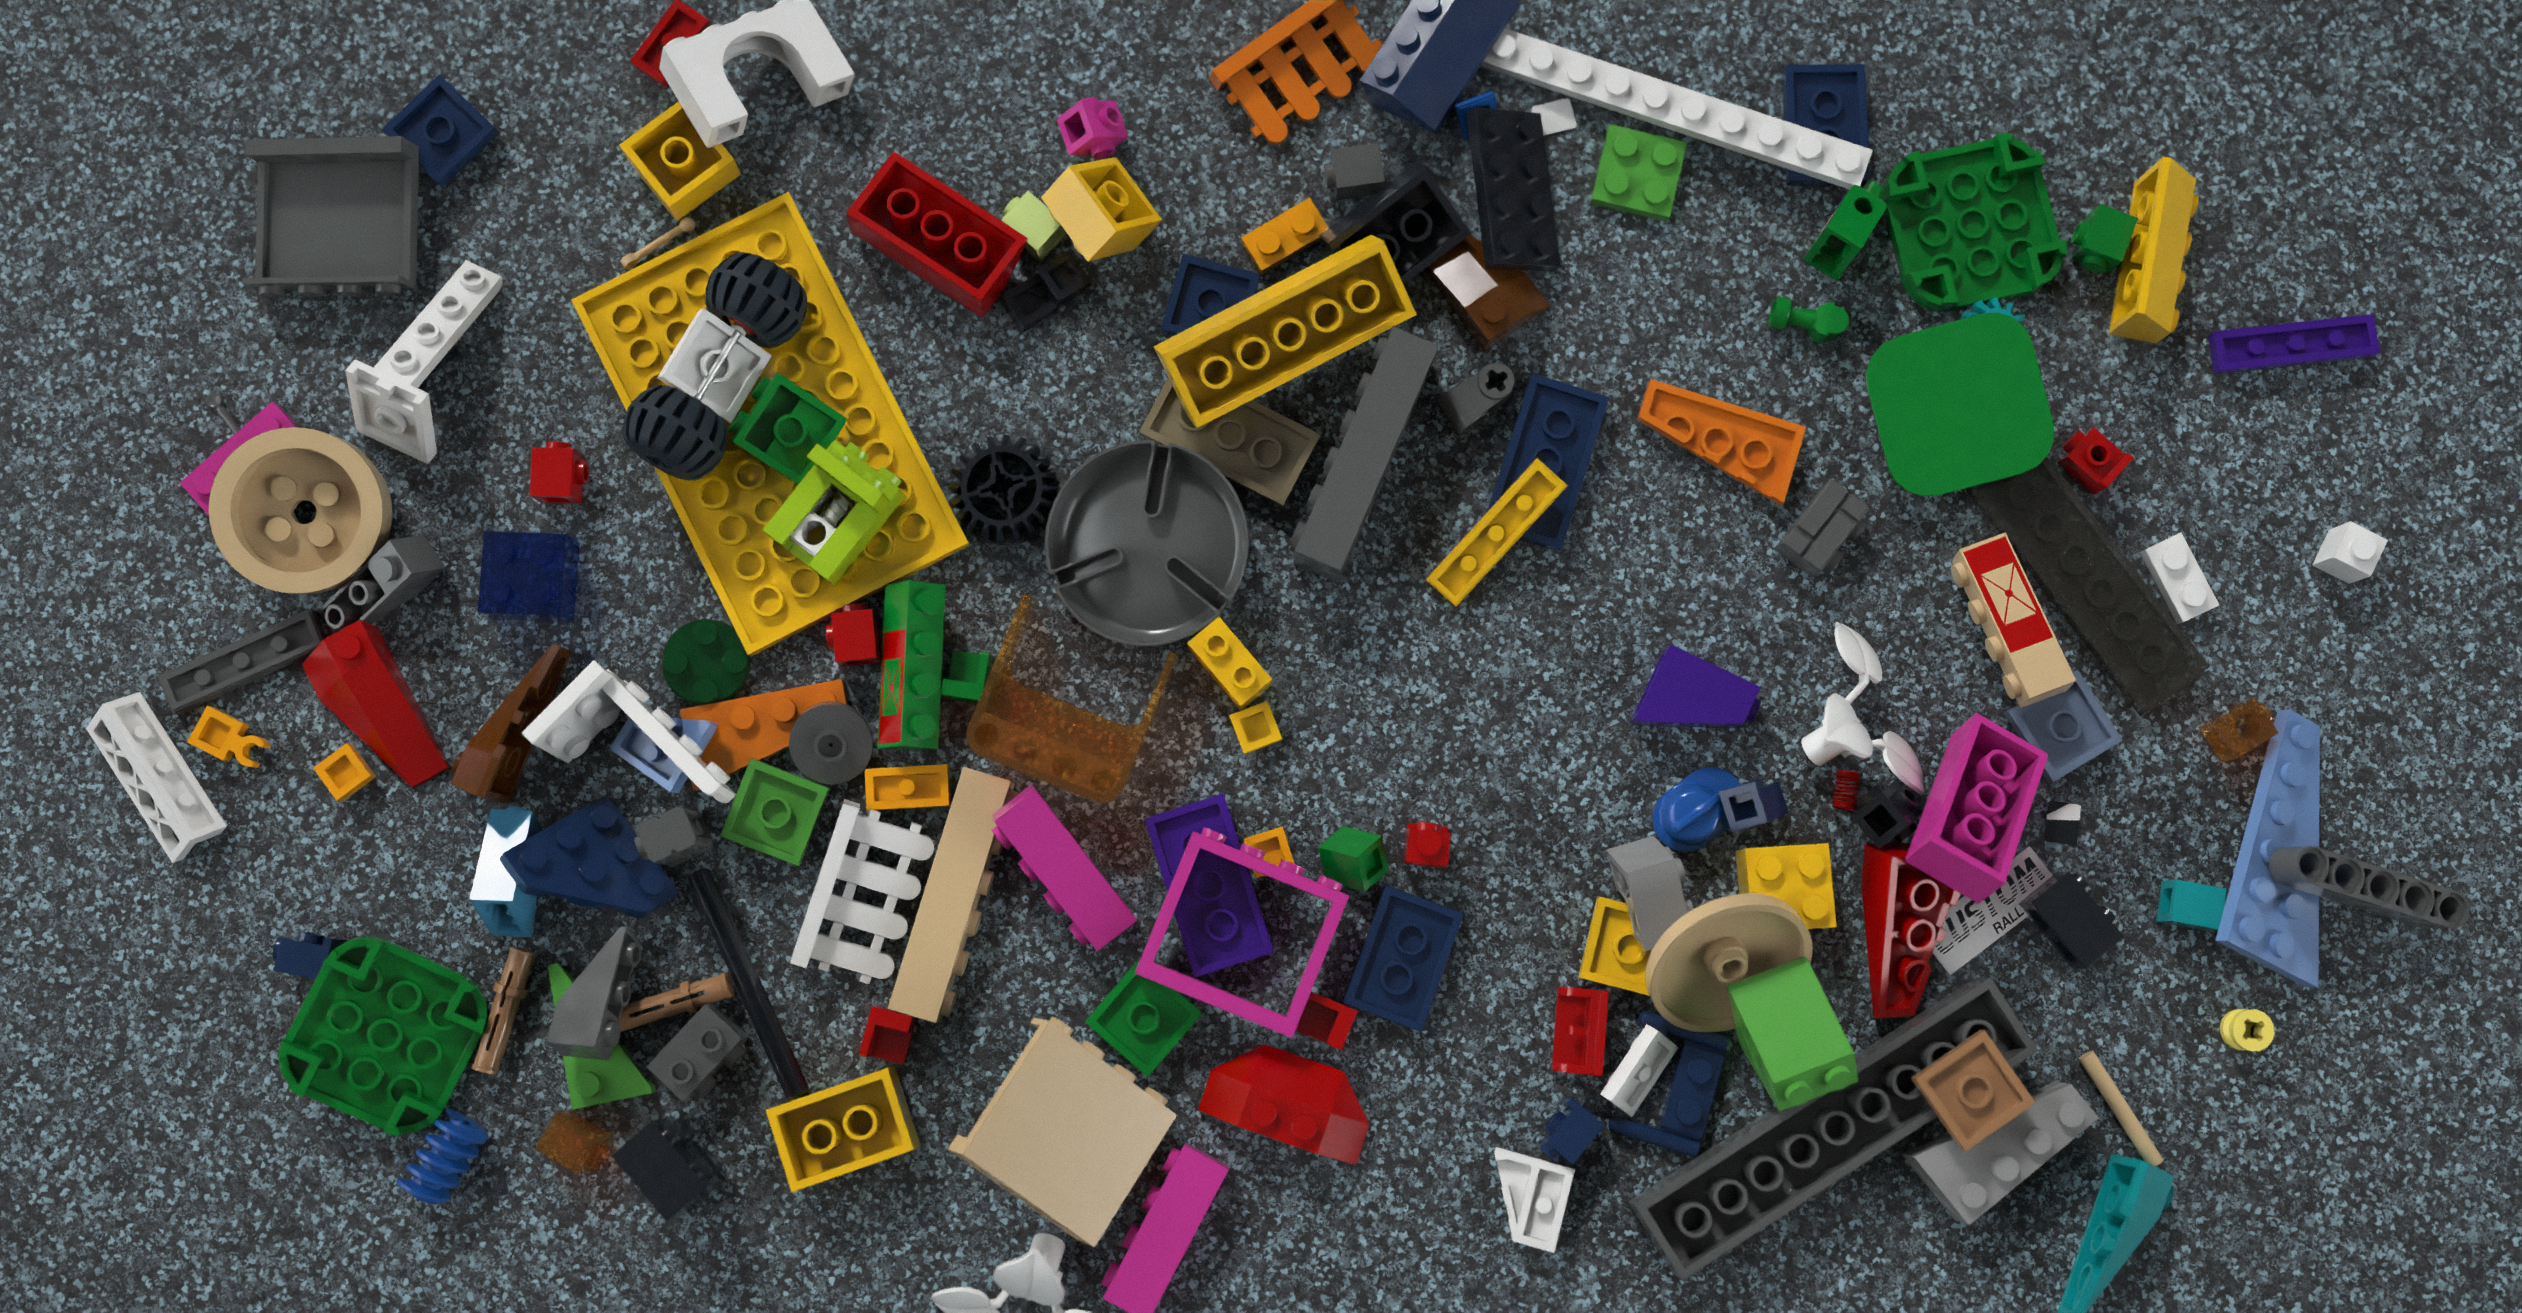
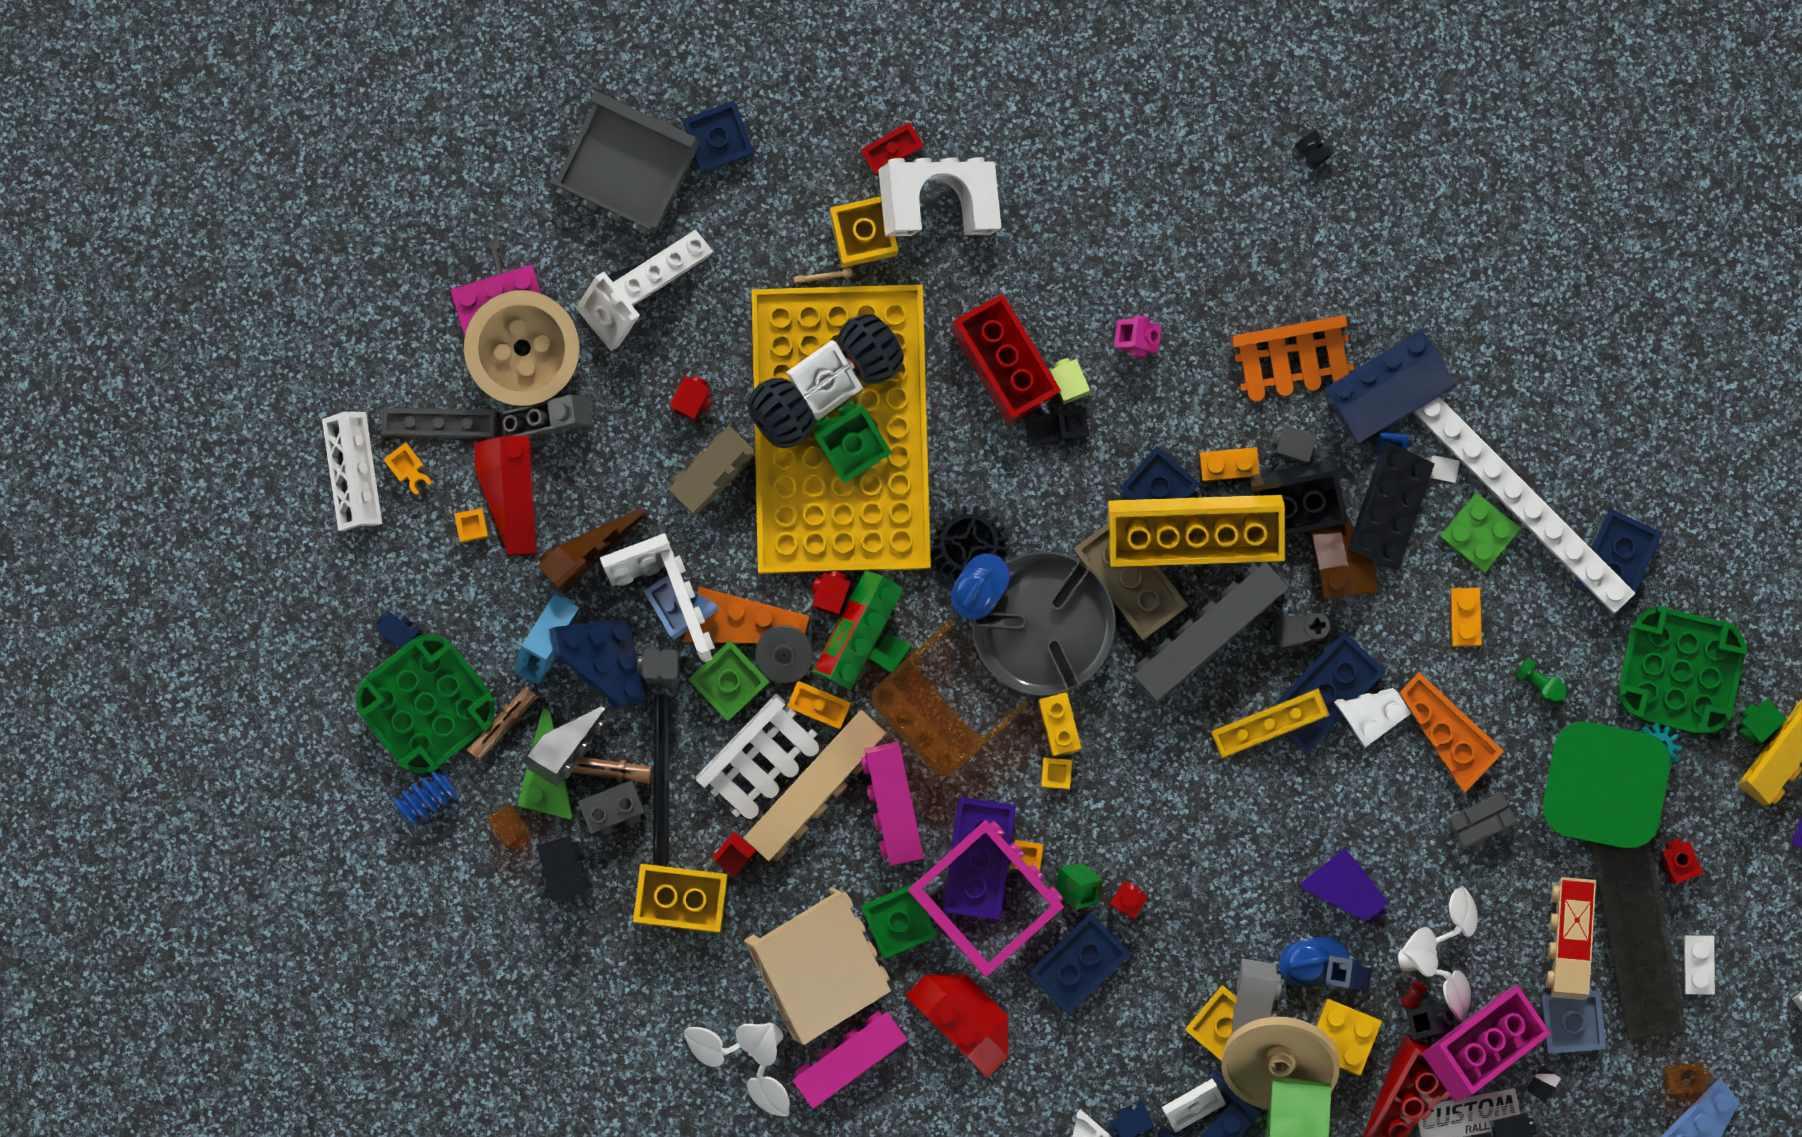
camera: 30 degrees right, 0 degrees up
(528, 576) = (643, 456): clear blue brick -> none
(626, 551) = (712, 471): none -> dark tan wedge
(705, 662) = (728, 563): dark green piece -> none
(833, 471) = (876, 488): lime brick -> none
(1042, 535) = (980, 586): none -> blue piece
(1101, 208) = (1118, 394): yellow brick -> none
(1326, 1020) = (1012, 978): red panel -> none
(1580, 1031) = (1168, 1062): red hinge -> none
(1619, 459) = (1373, 714): none -> white wing
(1673, 285) = (1465, 617): none -> light orange plate
(1851, 223) = (1596, 635): green torso -> none

